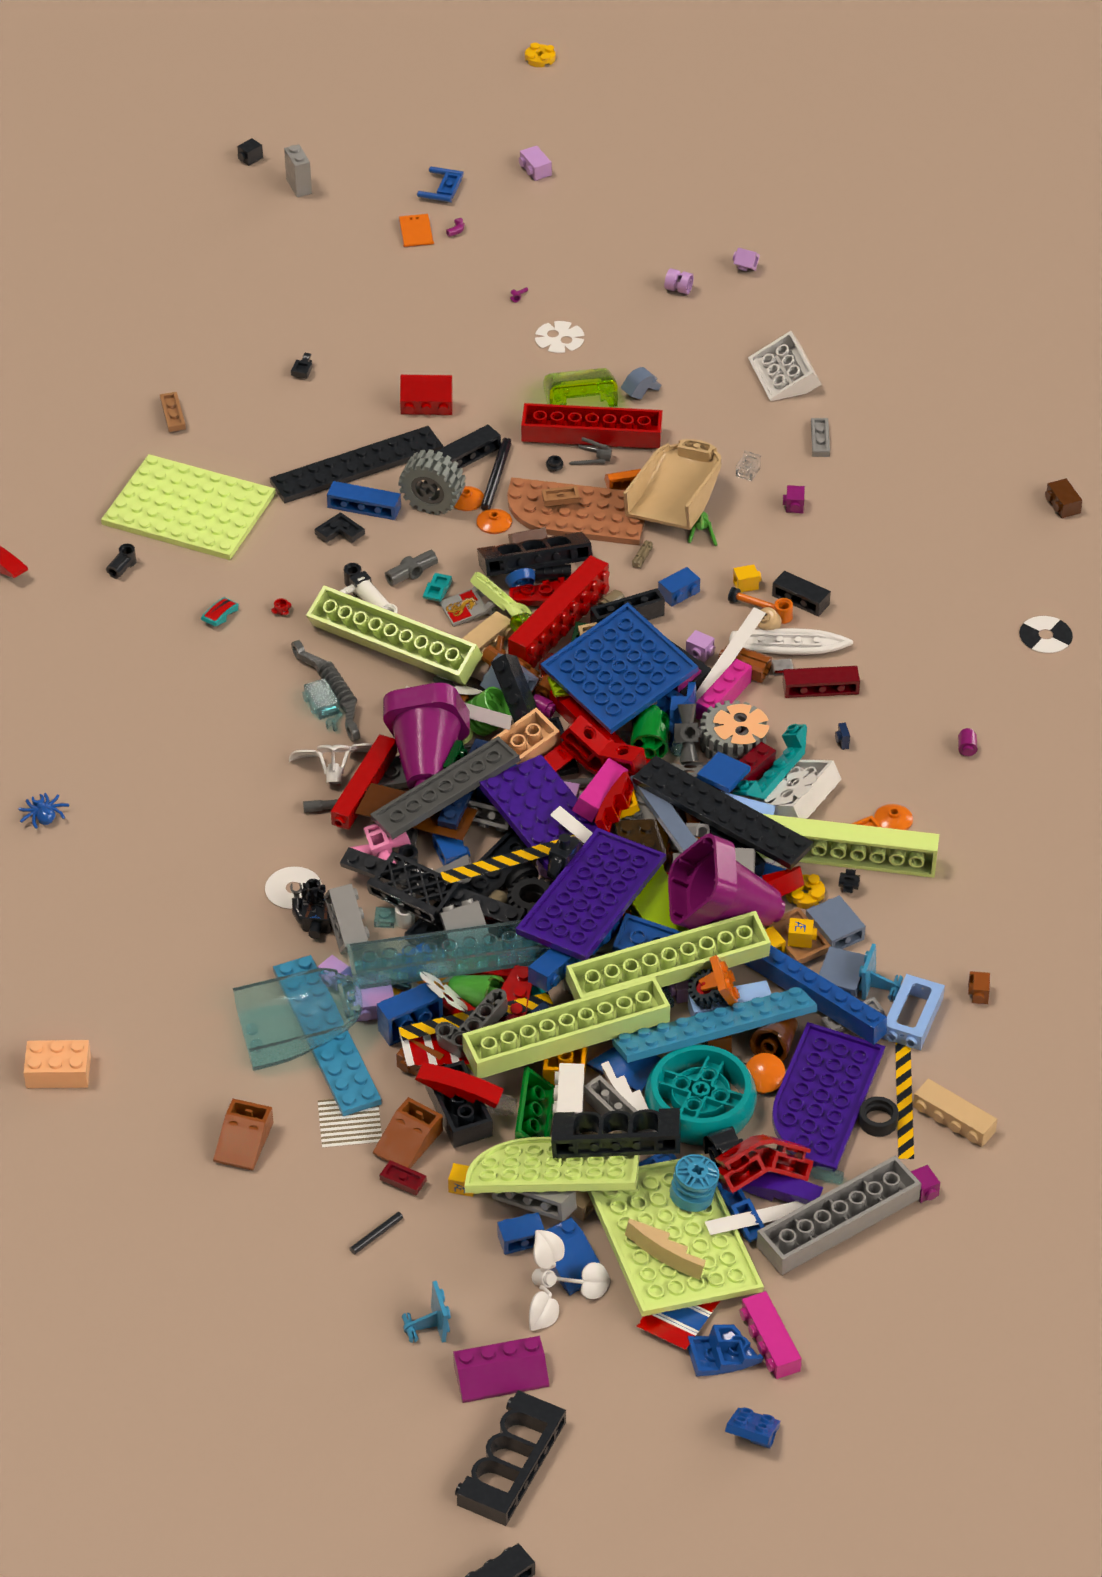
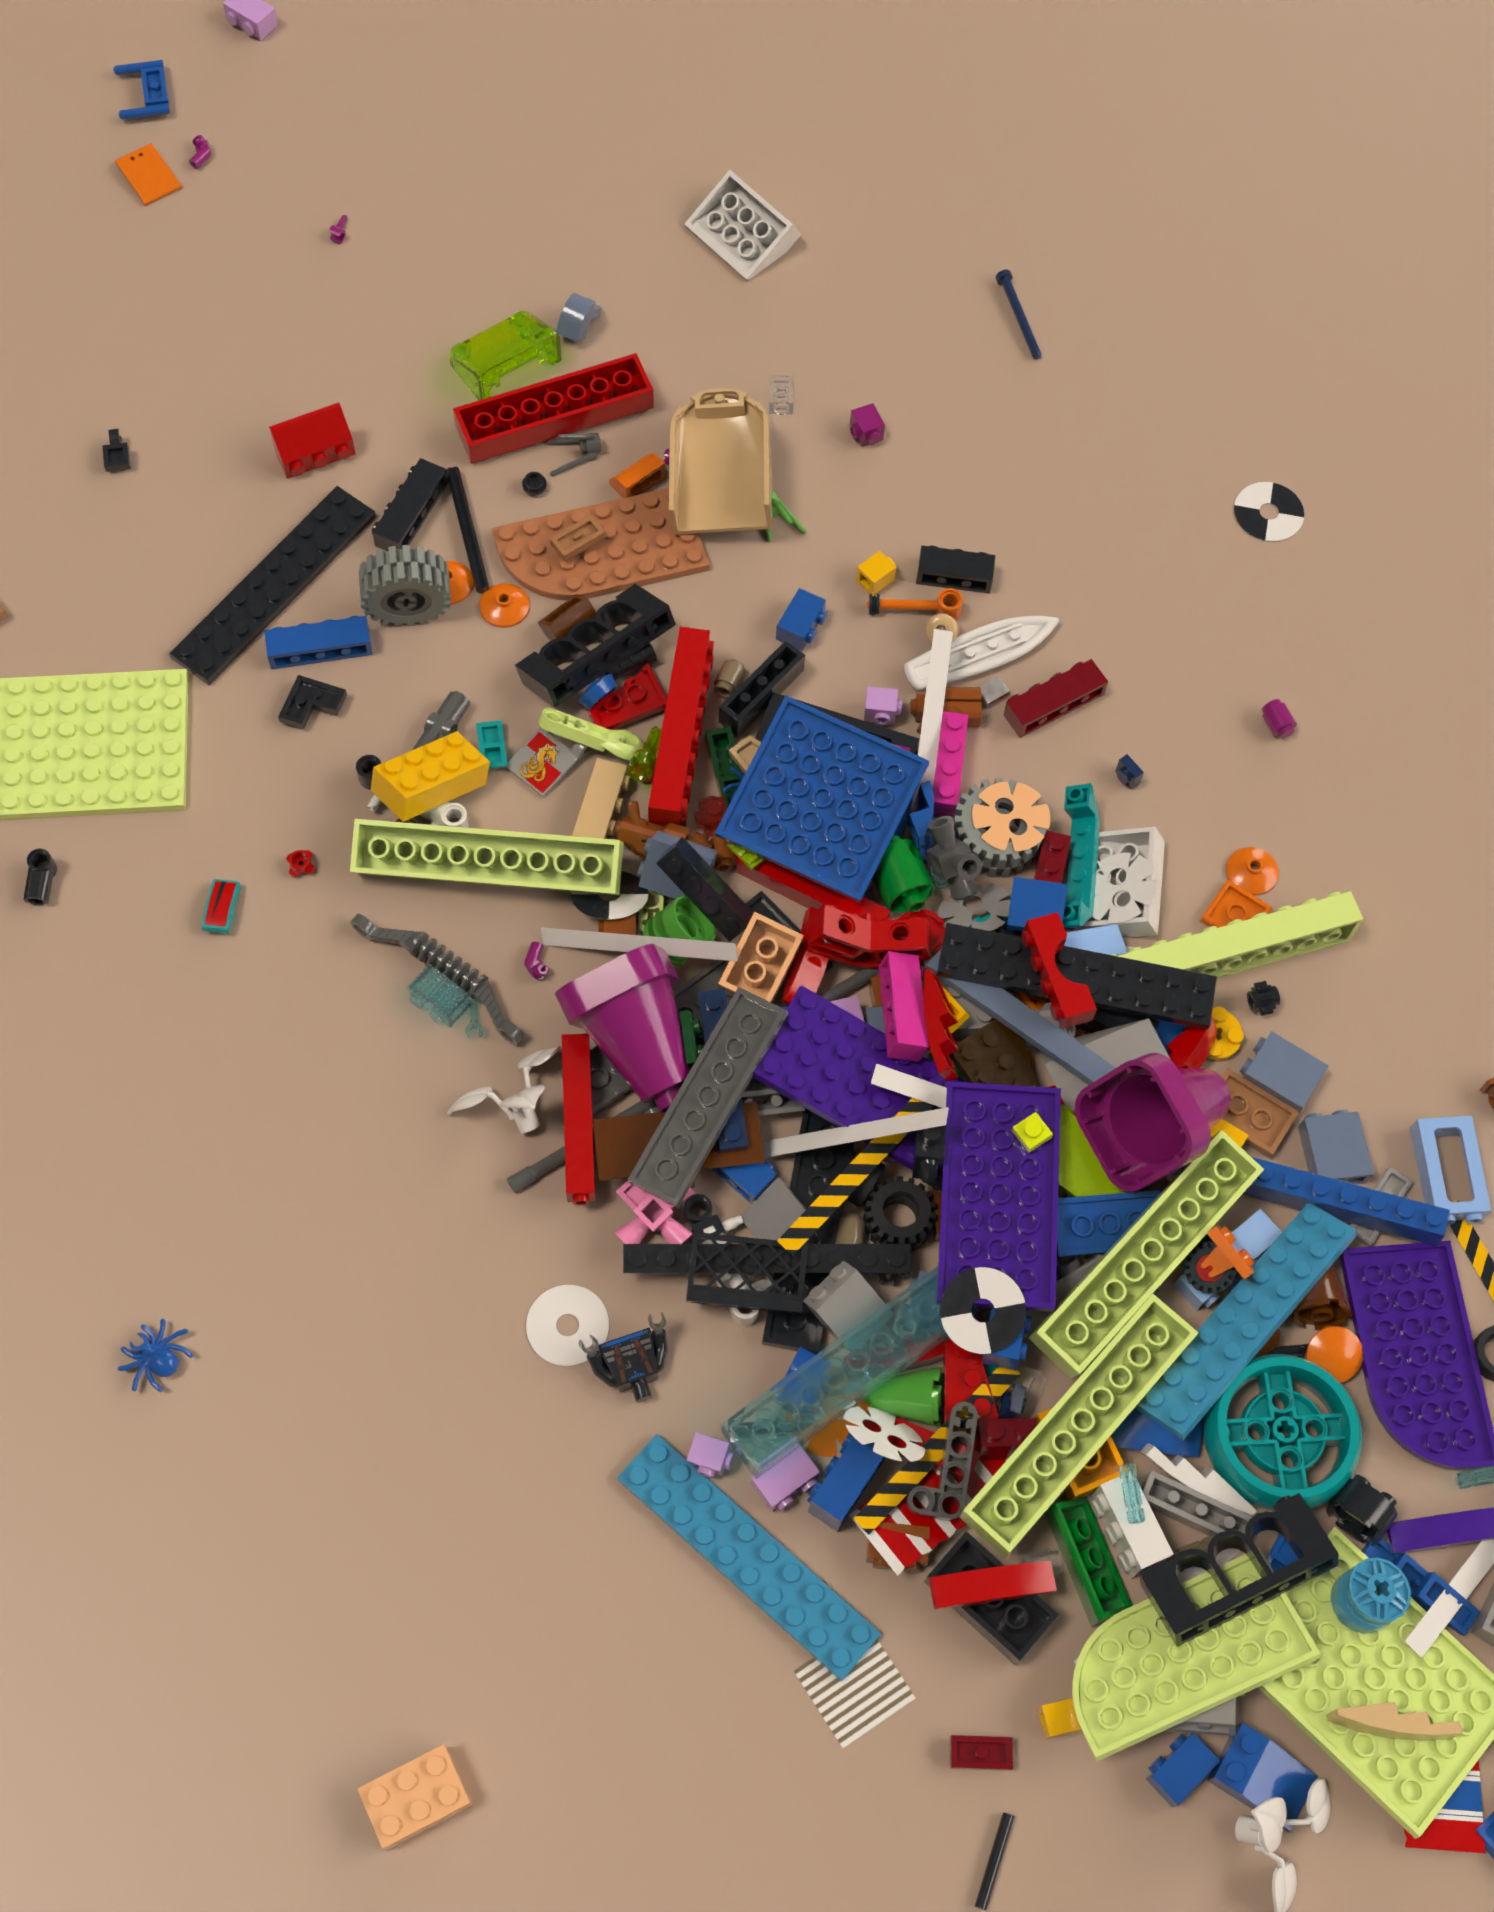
camera: 30 degrees left, 20 degrees up
(243, 1134) = (737, 1794): dark orange slope -> none
(295, 1014) = (706, 1558): clear light blue windscreen -> none
(313, 890) = (609, 1335): black gear -> none
(346, 916) = (687, 1368): light grey brick -> none
(384, 917) = (717, 1321): clear light blue plate -> none
(385, 582) = (429, 776): none -> yellow brick
(409, 1133) = (953, 1683): dark orange slope -> none
(522, 837) = (856, 1132): none -> white sticker
(534, 958) = (976, 1335): none -> sticker
(545, 705) = (737, 881): magenta brick -> none
(555, 342) = (432, 293): white piece -> none
(574, 1071) = (1131, 1493): none -> clear light blue axle
(631, 867) = (1032, 1132): none -> neon yellow plate
(642, 554) = (724, 585): dark tan axle -> none
(679, 281) = (529, 138): lavender wheel -> none
(704, 813) = (1069, 1000): none -> red arch
(746, 259) = (602, 75): lavender brick -> none
(754, 1159) = (1424, 1510): red brick -> none
(801, 932) = (1261, 1113): yellow brick -> none
(820, 437) = (840, 315): light grey tile -> none
(871, 979) = (1377, 1141): dark azure plate -> none
(947, 450) = (1004, 278): none -> dark blue bar
(1063, 498) = (1181, 299): reddish brown brick -> none

